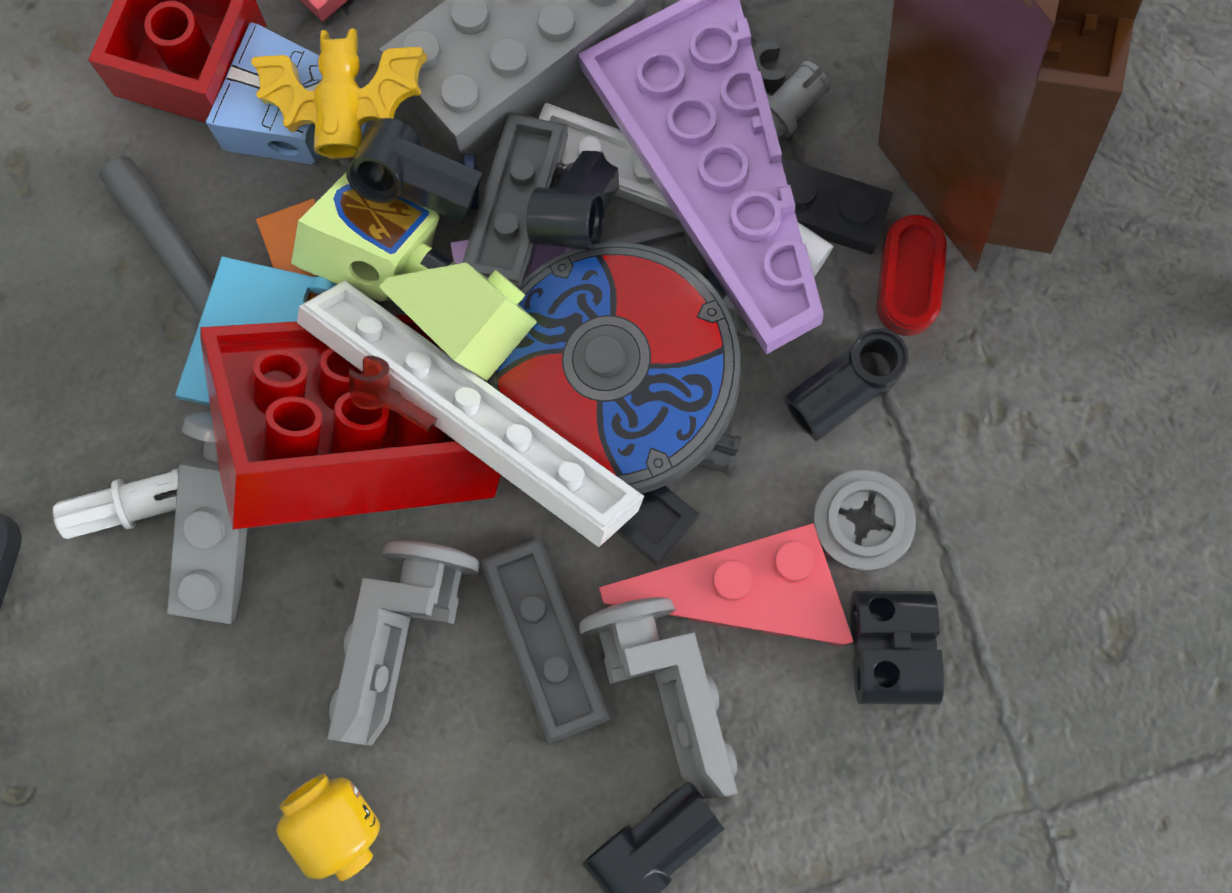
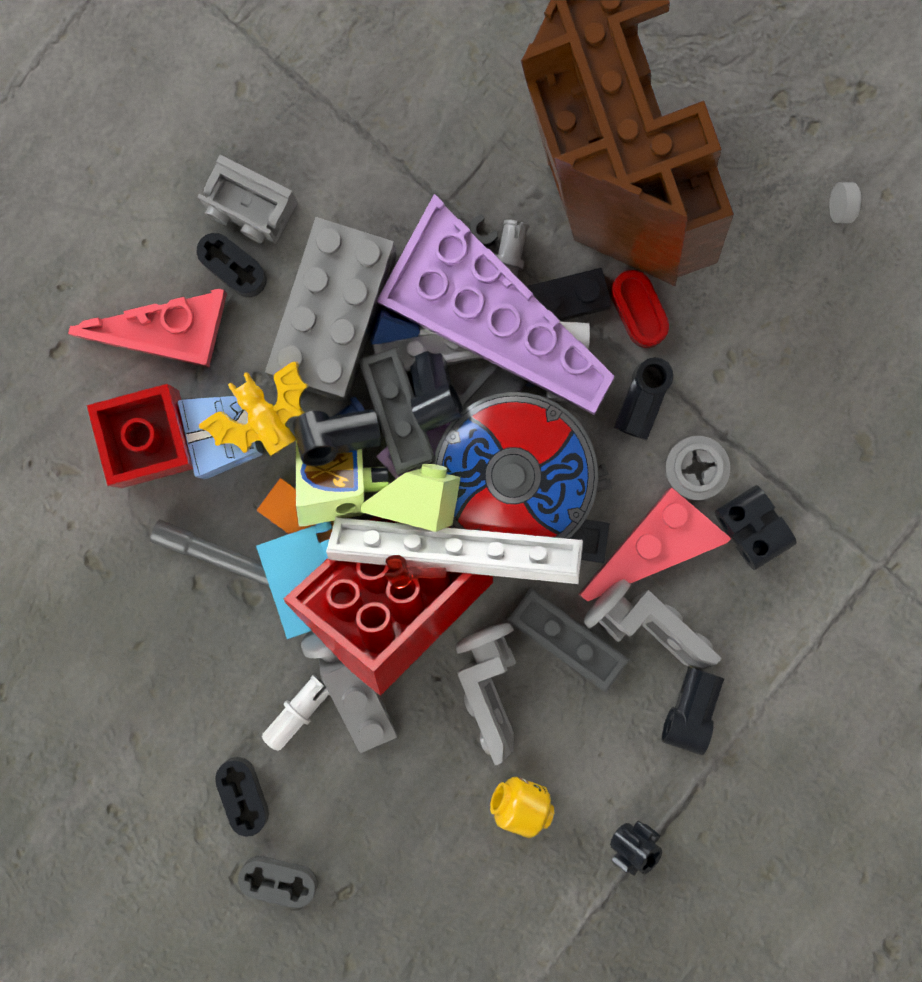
camera: 30 degrees left, 10 degrees up
(578, 99) = (392, 327): none -> dark blue slope

